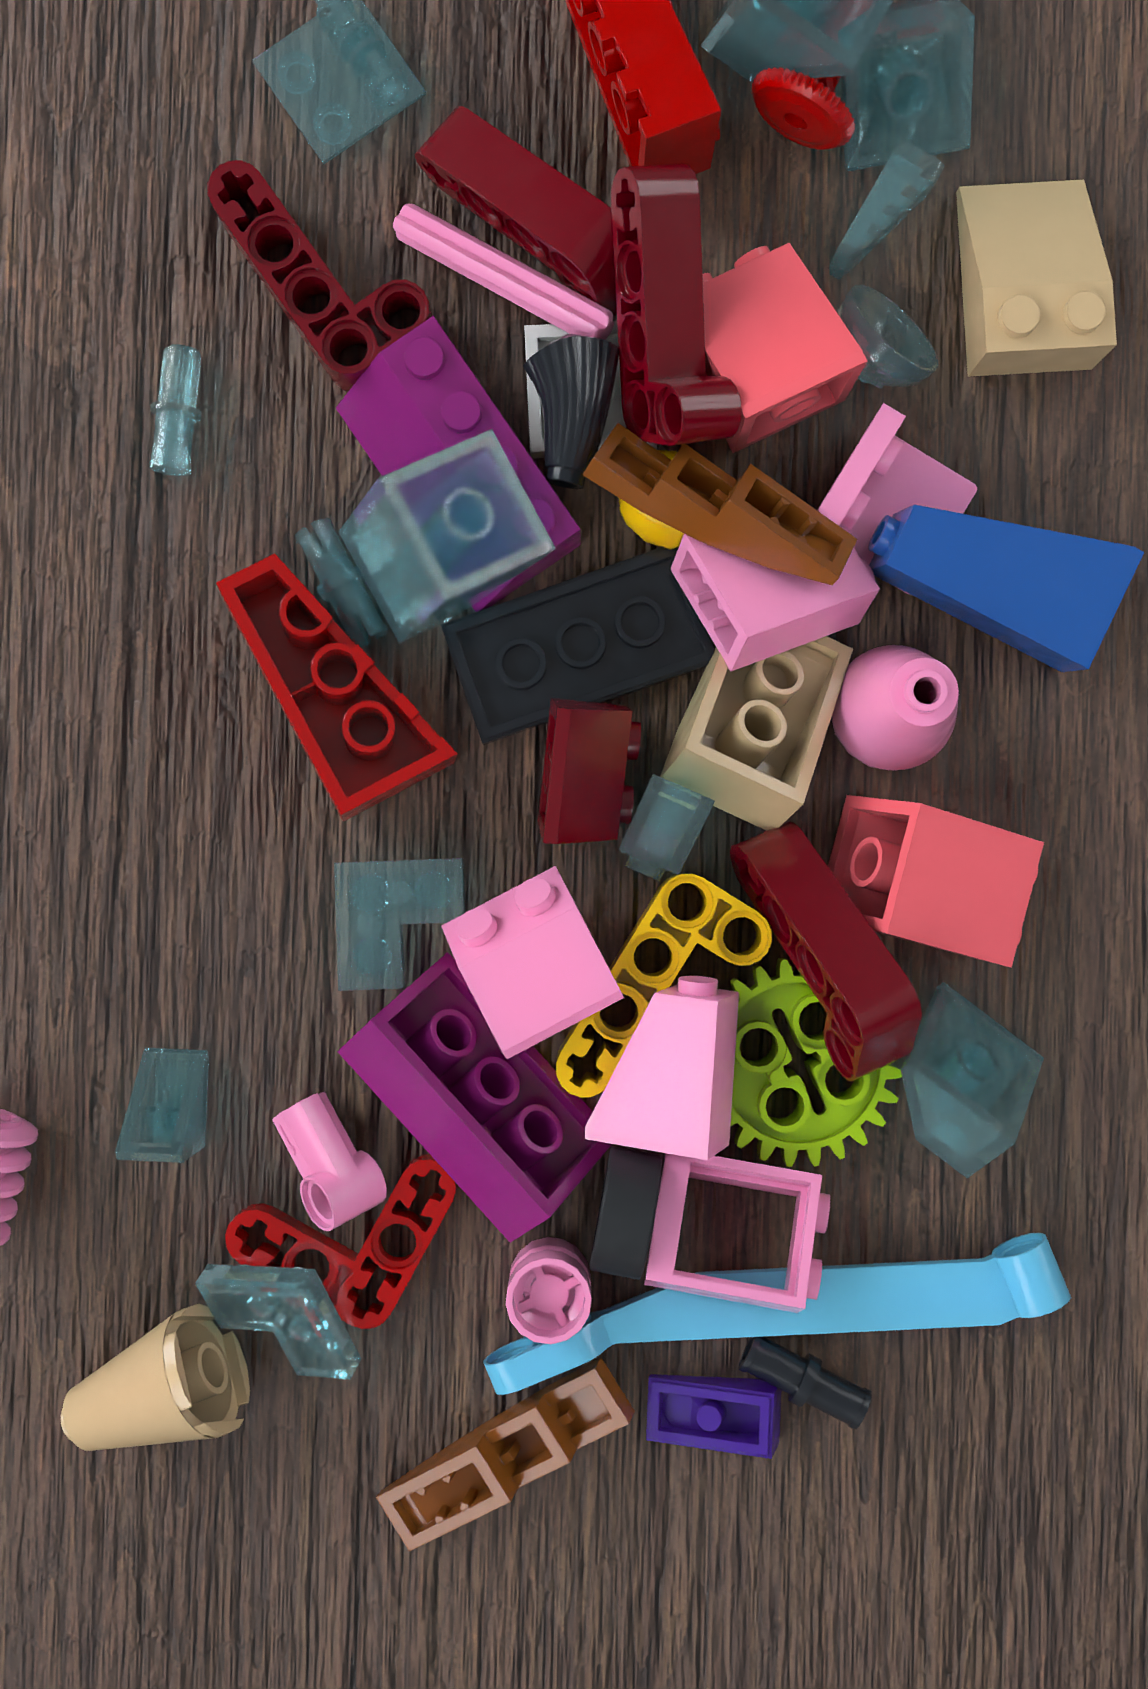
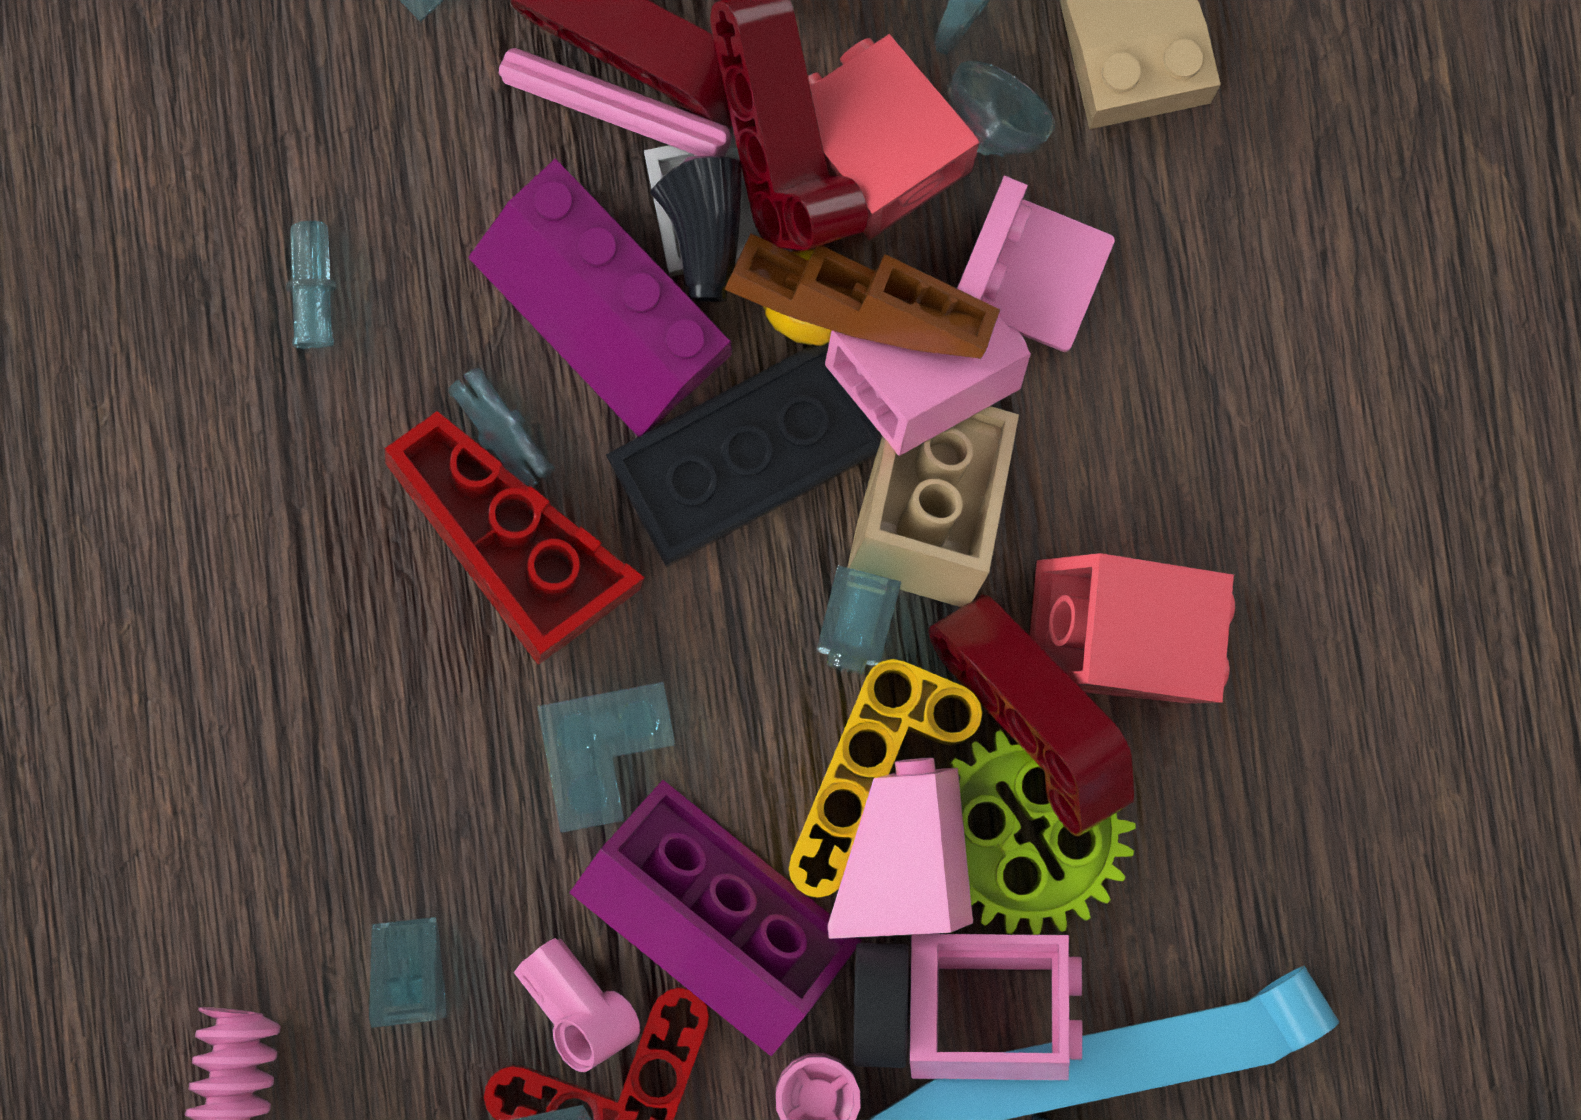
camera: 15 degrees left, 5 degrees down
(307, 275) = (424, 132): dark red beam -> none
(444, 534) = (598, 369): clear light blue slope -> none
(531, 962) = (749, 769): bright pink slope -> none
(585, 771) = (773, 575): dark red slope -> none
(895, 707) = (1055, 482): bright pink cone -> none
(967, 1082) = (1197, 824): clear light blue slope -> none
(1010, 580) = (1161, 325): blue slope -> none

